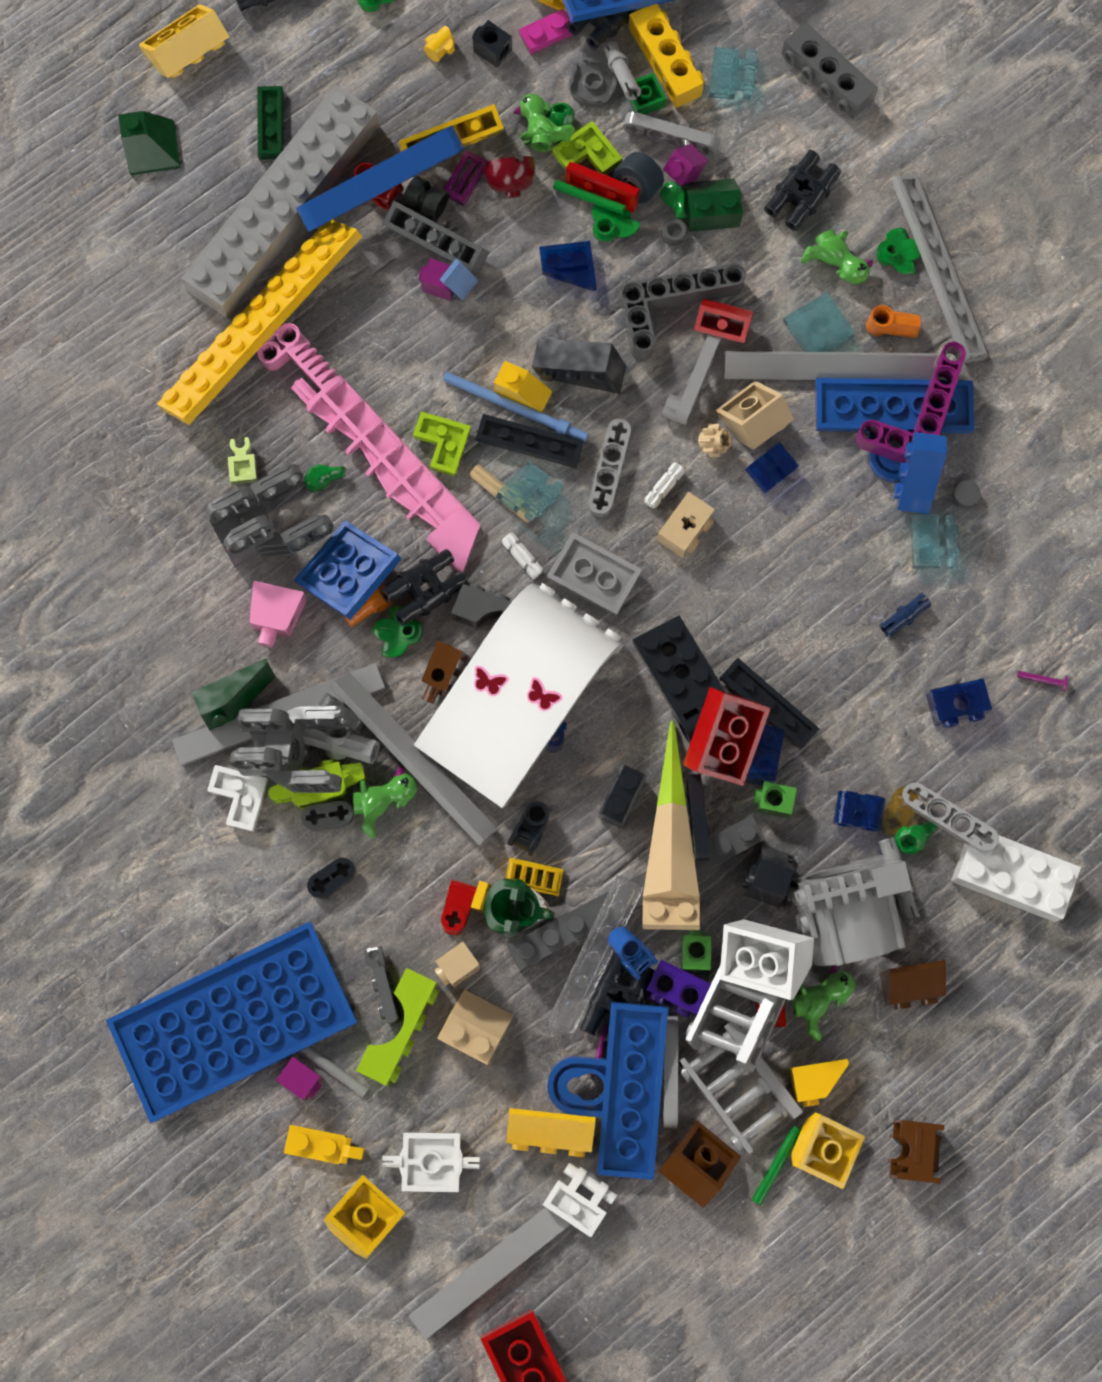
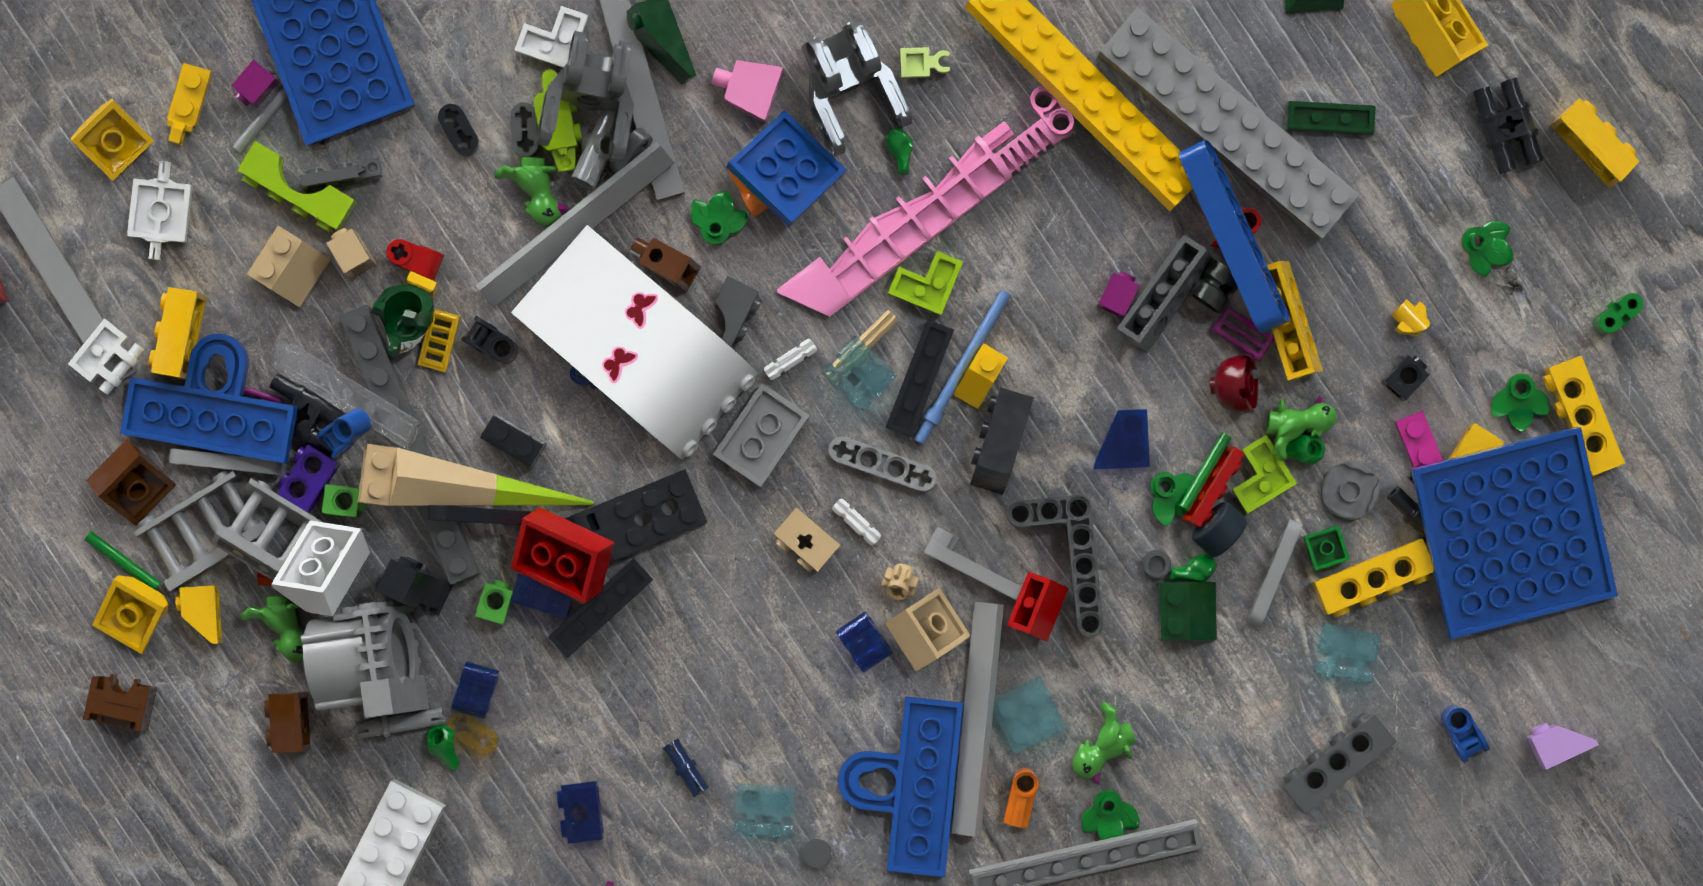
camera: 100 degrees right, 10 degrees up
(432, 597) = (764, 236): black pin -> none
(459, 279) = (1108, 314): medium blue slope -> none
(619, 65) = (1364, 521): light grey pin -> none
(685, 164) = (1231, 584): magenta brick -> none
(807, 200) = (1192, 698): black pin -> none
(920, 472) = (833, 798): blue brick -> none
(928, 414) = (905, 816): magenta beam -> none
(948, 820) = (450, 779): light grey beam -> none

